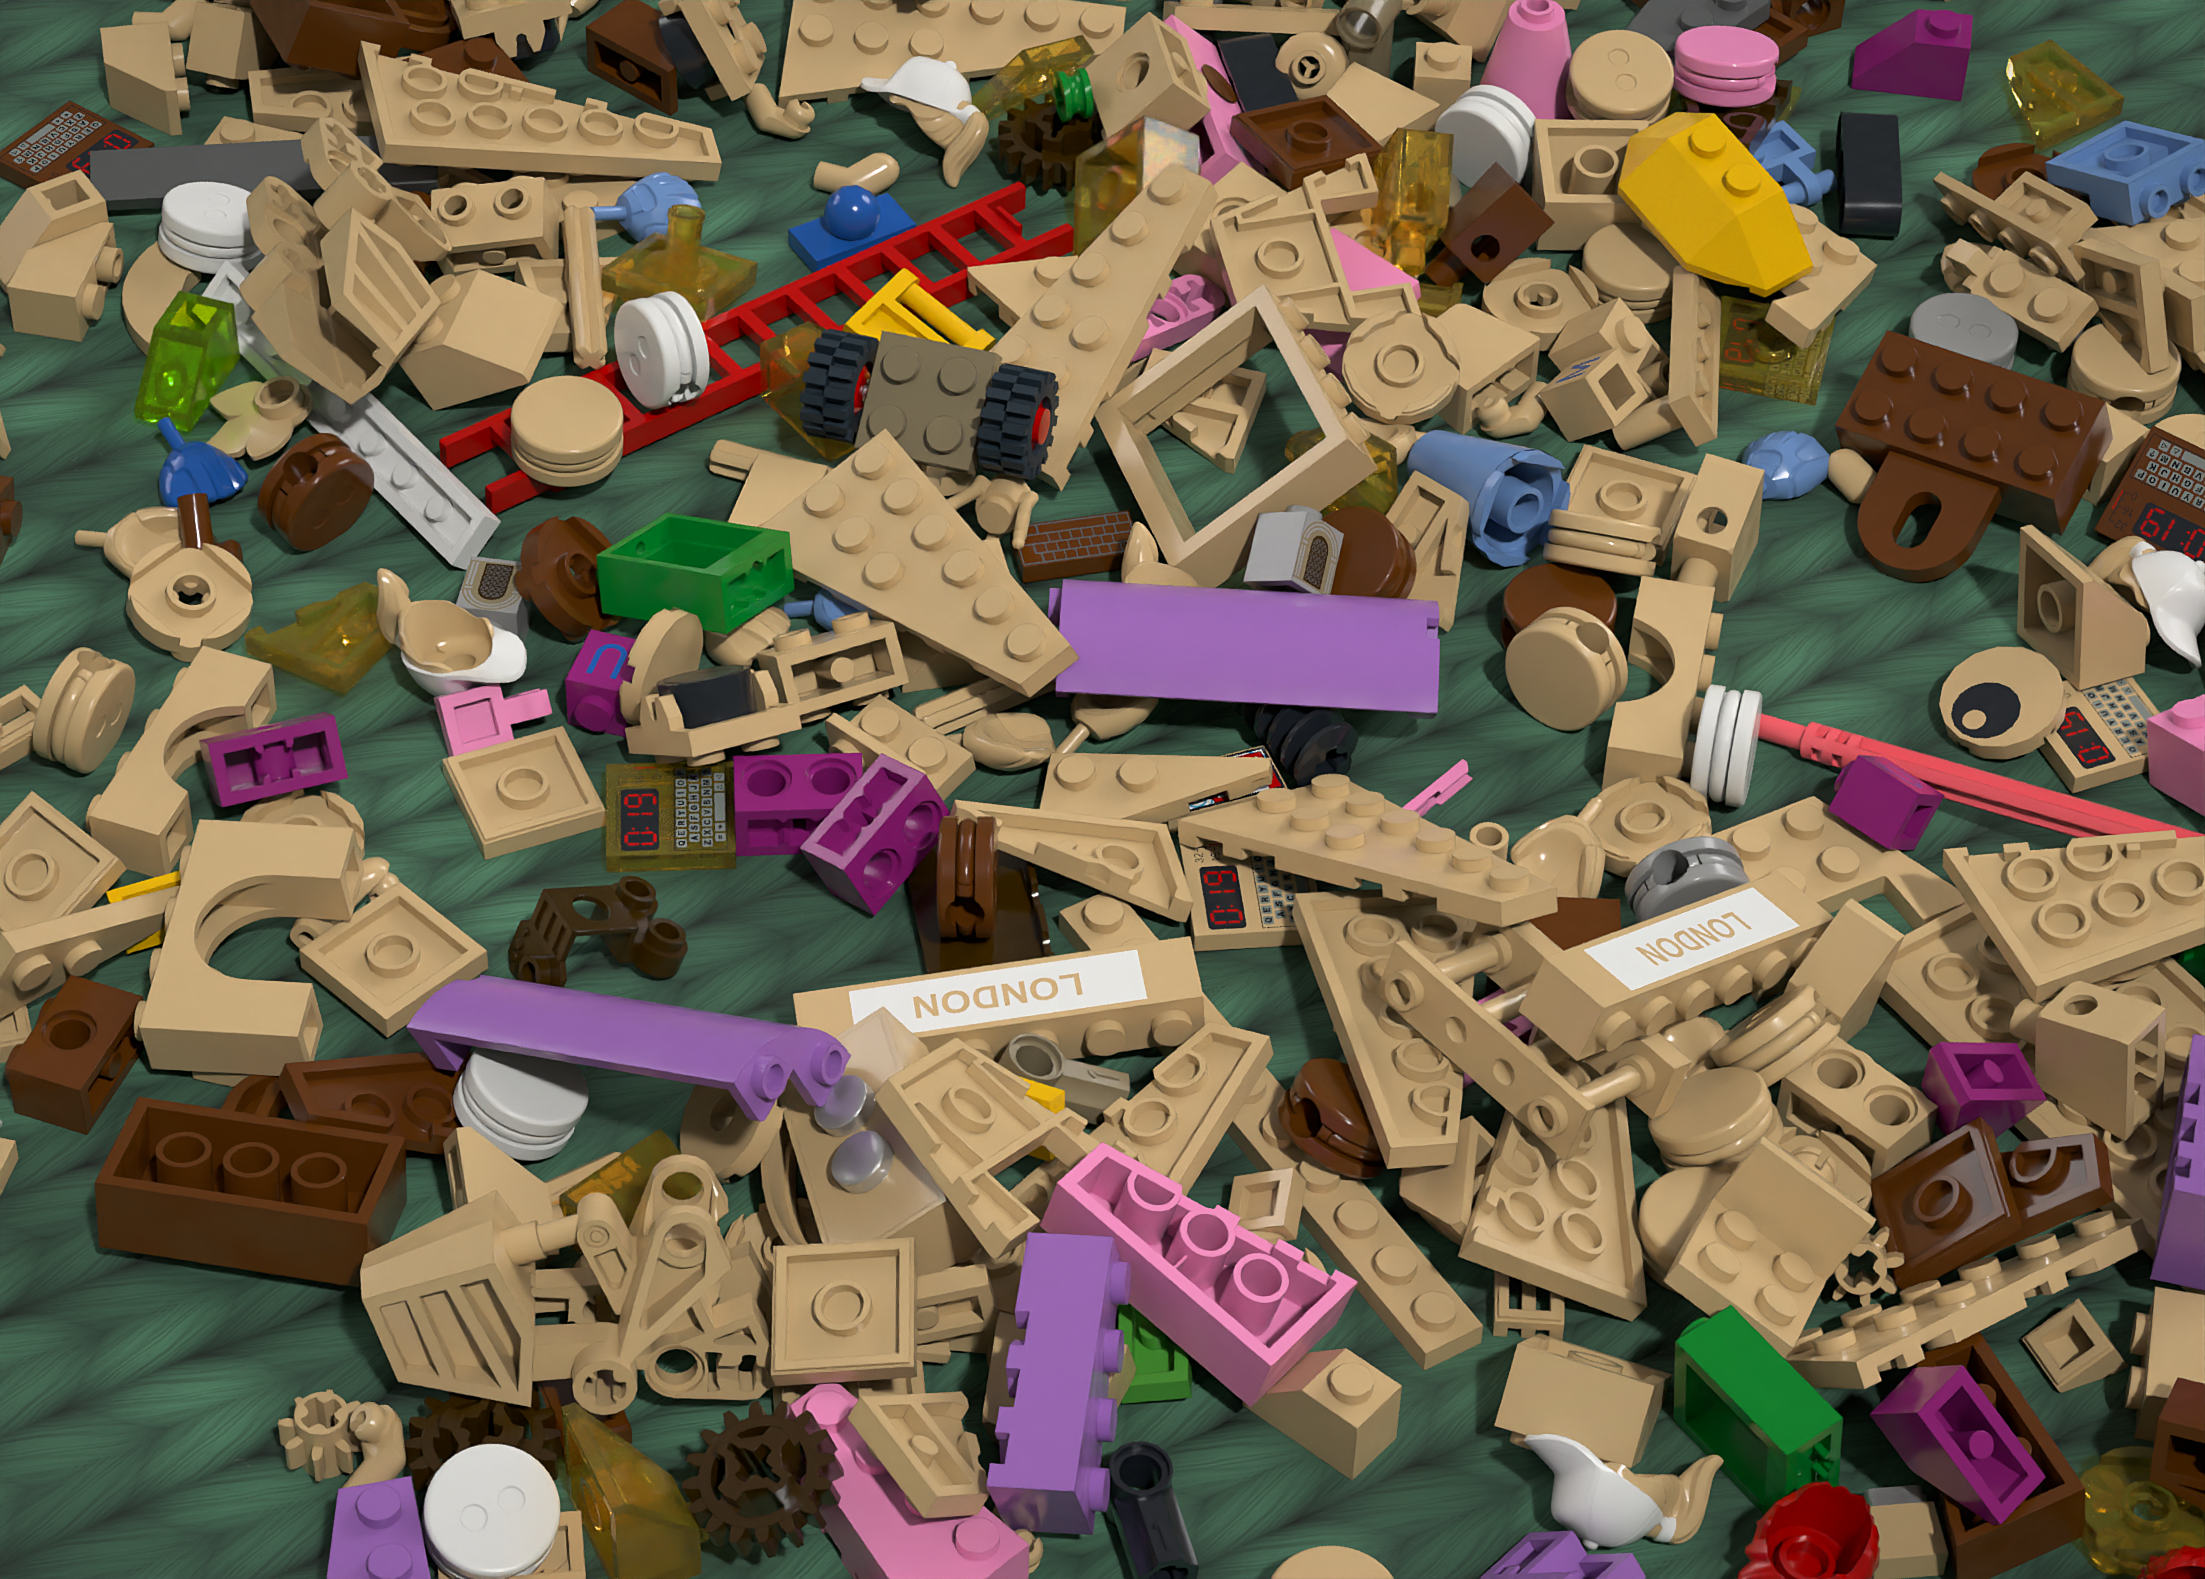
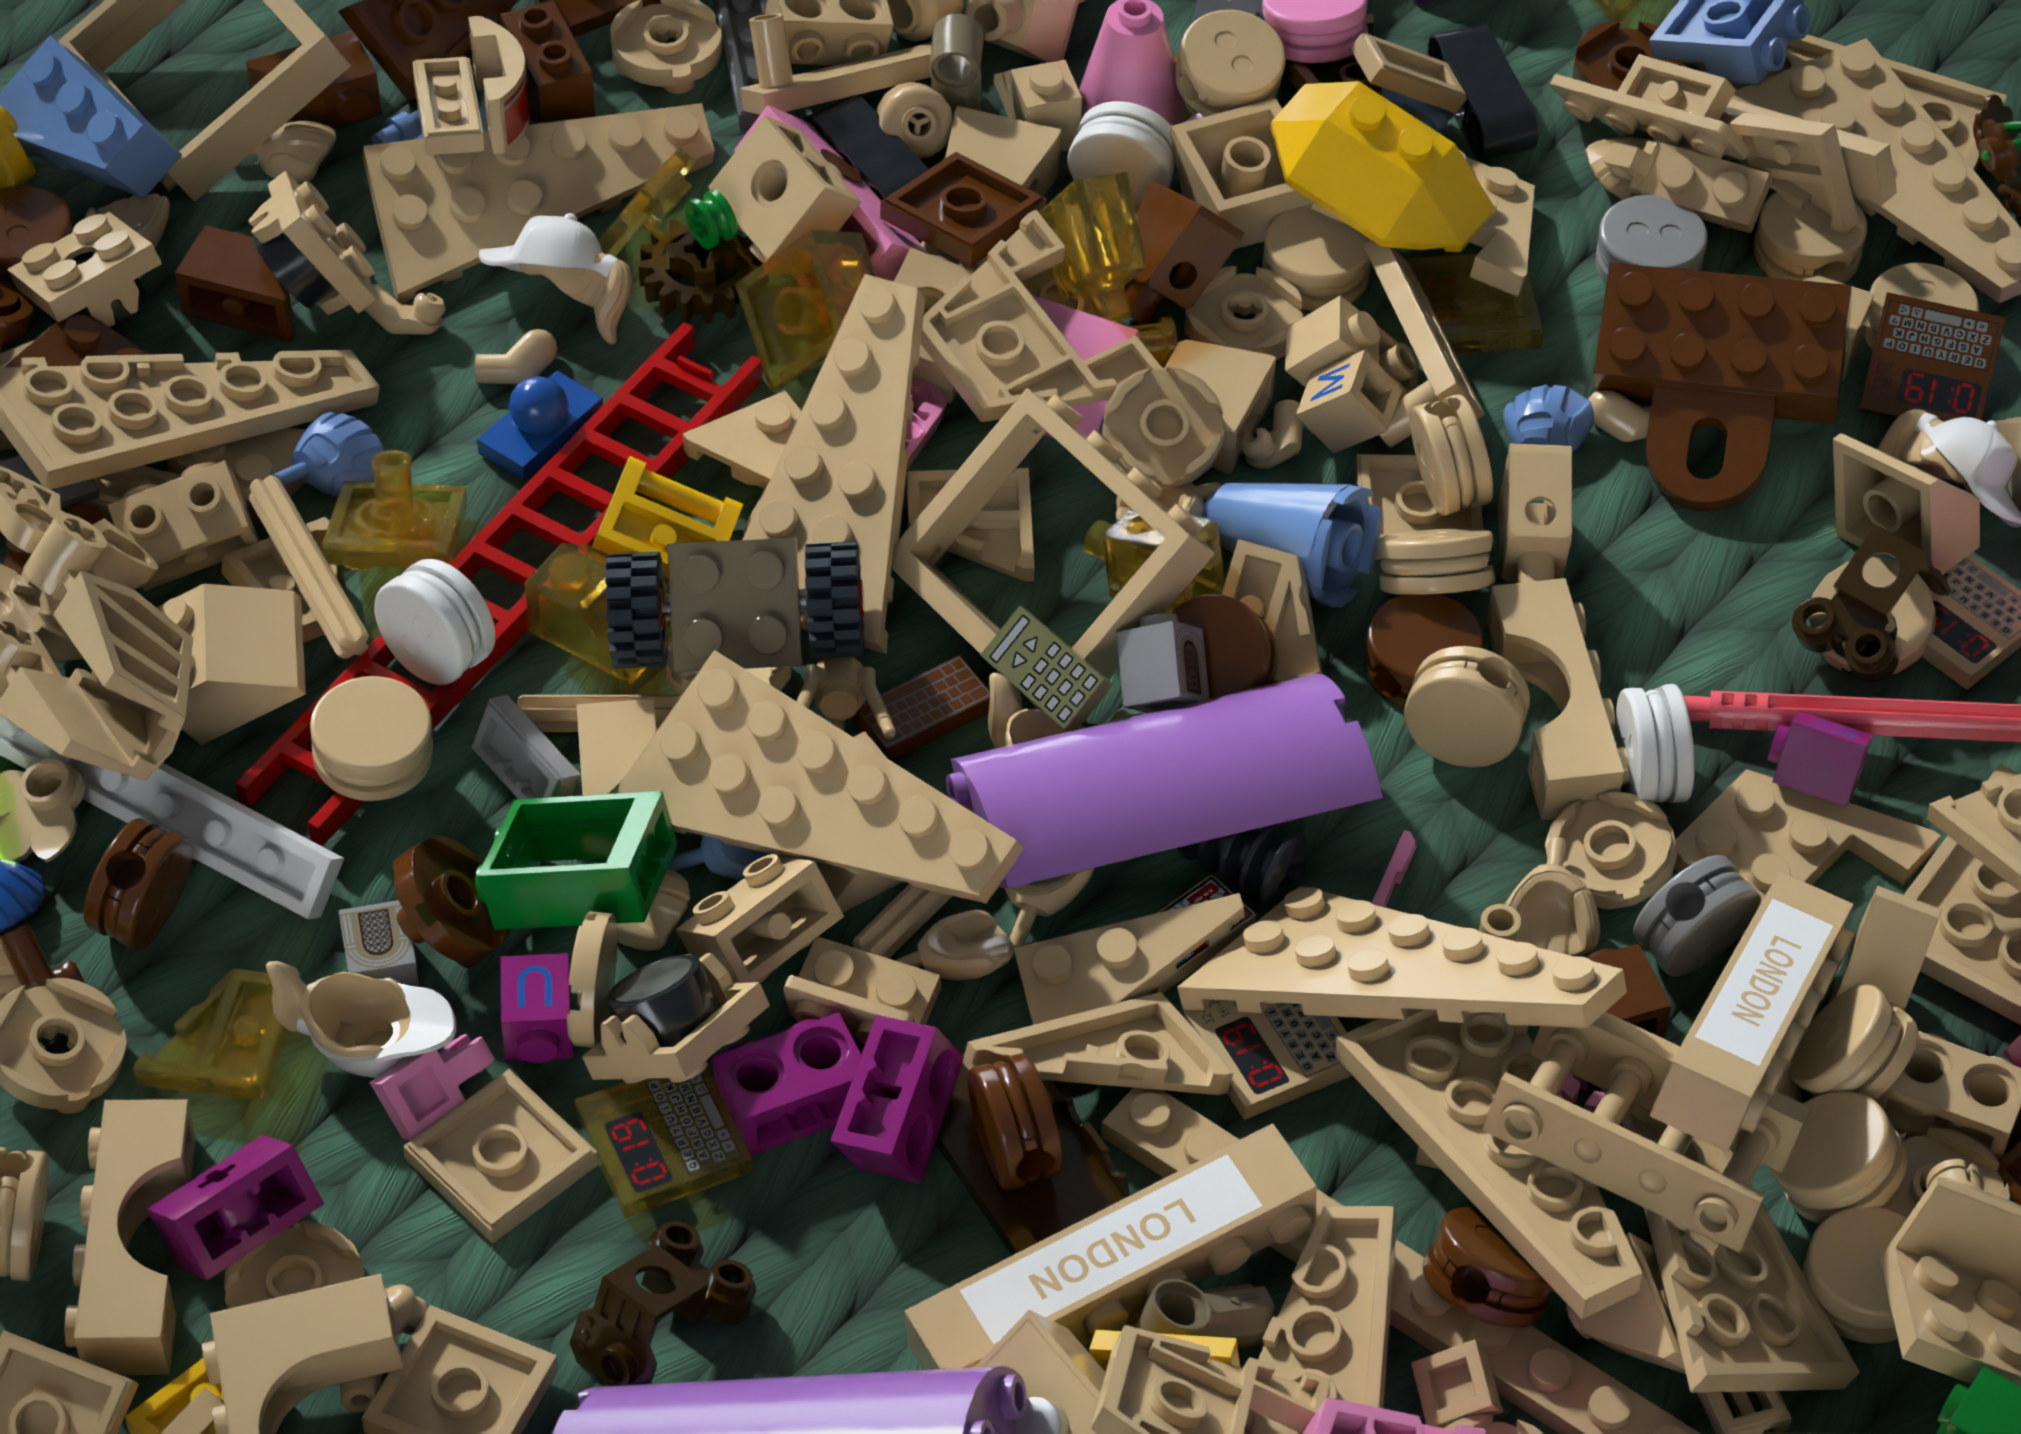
camera: 20 degrees left, 5 degrees up
(695, 478) = (522, 753): none -> light grey plate
(1185, 530) = (1046, 669): none -> olive tile
(1657, 456) = (1451, 454): none -> tan head
(1792, 133) = (1408, 72): none -> tan tile
(1982, 687) = (1862, 611): none -> dark brown piece

